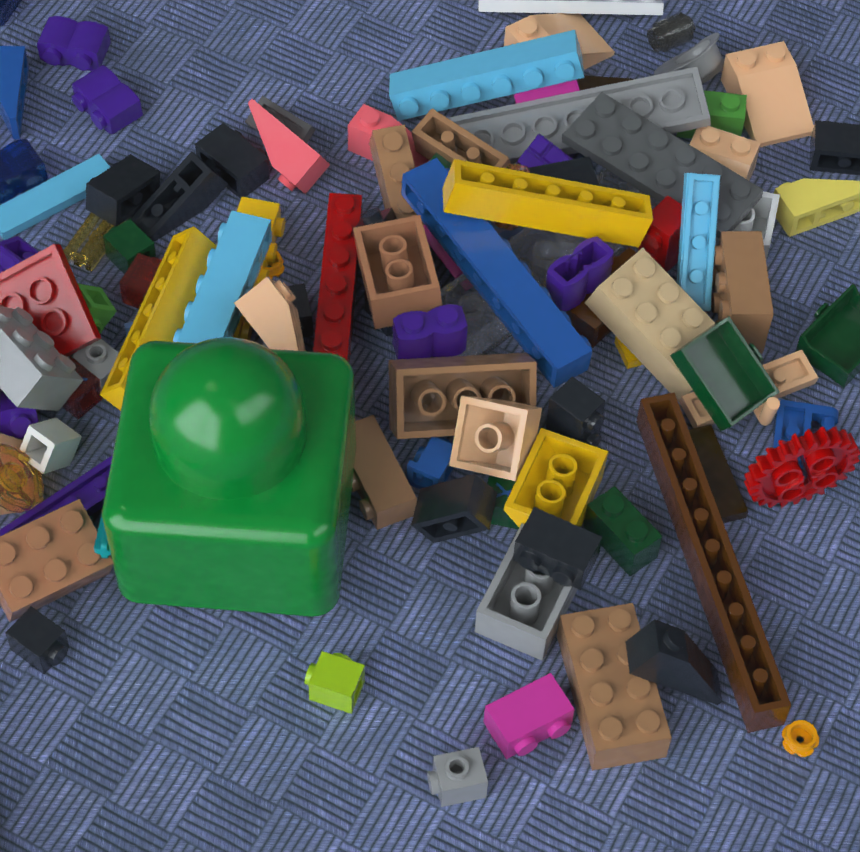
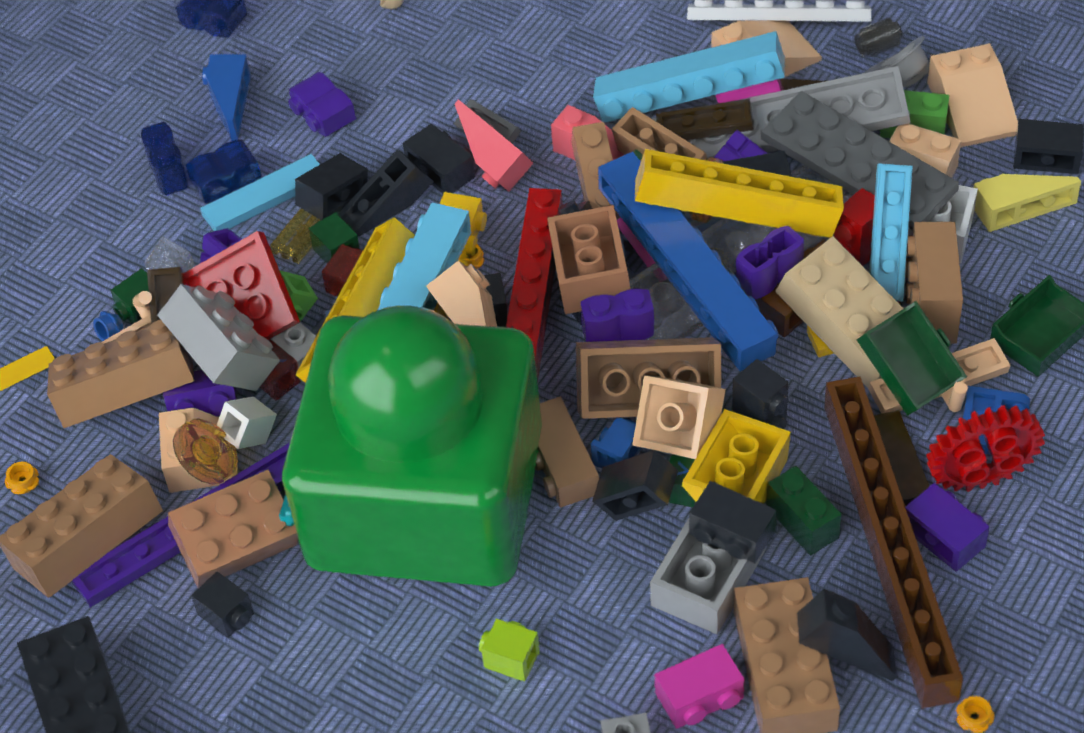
camera: 10 degrees right, 5 degrees down
(73, 43) = (293, 52): dark purple brick -> none
(507, 120) = (709, 120): none -> dark brown tile
(765, 545) = (947, 527): none -> dark purple brick

